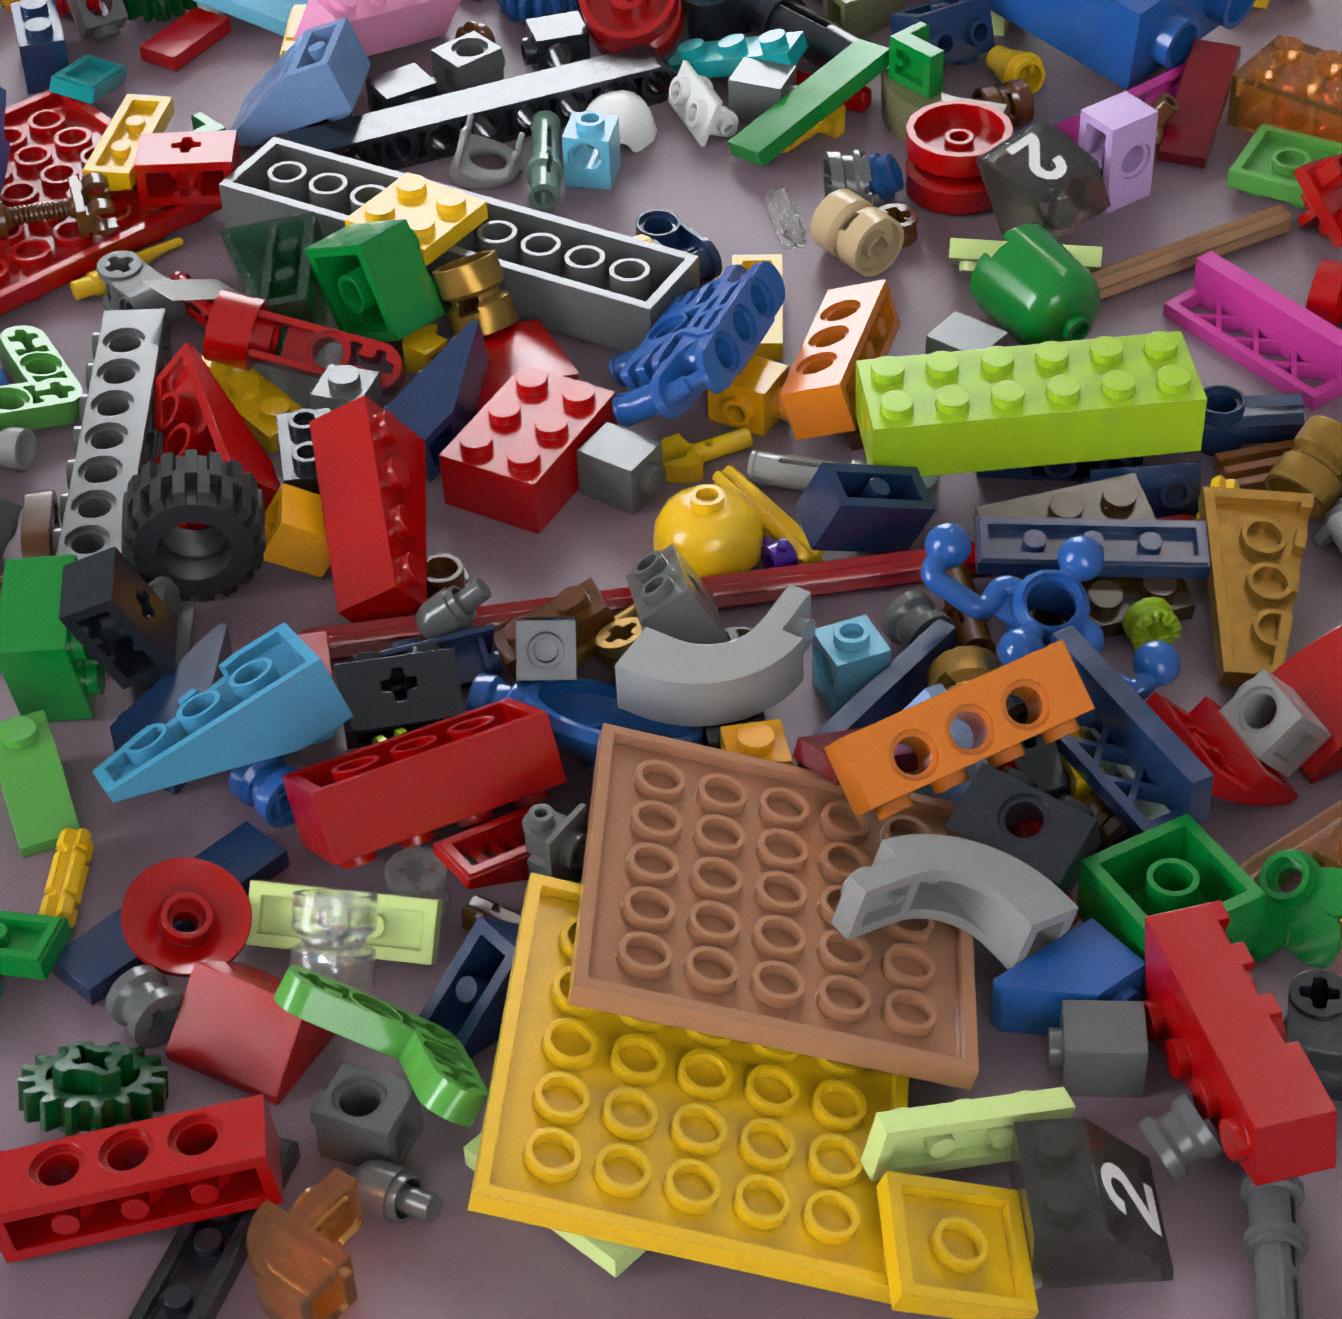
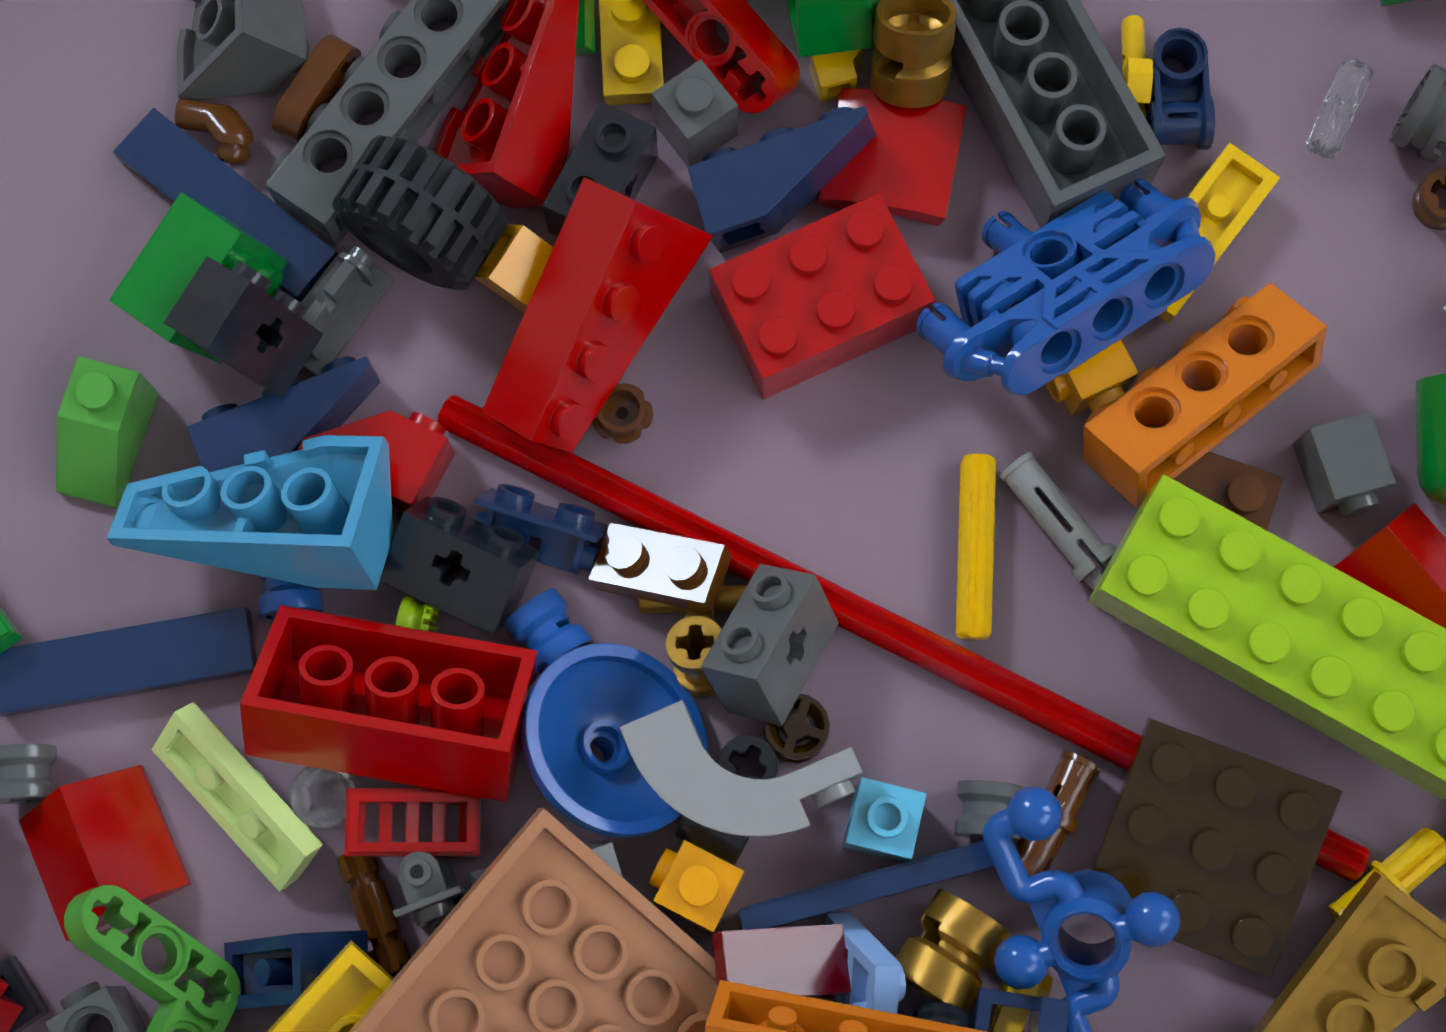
camera: 35 degrees right, 35 degrees up
(67, 874) = (64, 562): yellow axle -> none
(185, 892) = (77, 727): red dish -> none
(335, 934) = (194, 833): clear wheel -> none
(451, 609) = (573, 491): dark grey cylinder -> none
(546, 648) = (614, 612): brick -> none
(620, 467) = (886, 385): dark grey brick -> none
(685, 460) = (987, 403): yellow bar -> none
(711, 529) = (895, 541): yellow cylinder -> none
(777, 553) = (944, 609): dark purple piece -> none
(856, 232) = (1382, 198): tan wheel -> none
(864, 508) = (1048, 638): dark blue brick -> none
(1129, 545) = (1214, 861): dark blue tile -> none
(1147, 614) = (1206, 972): lime bush -> none
(1167, 486) = (1376, 798): dark blue hinge -> none

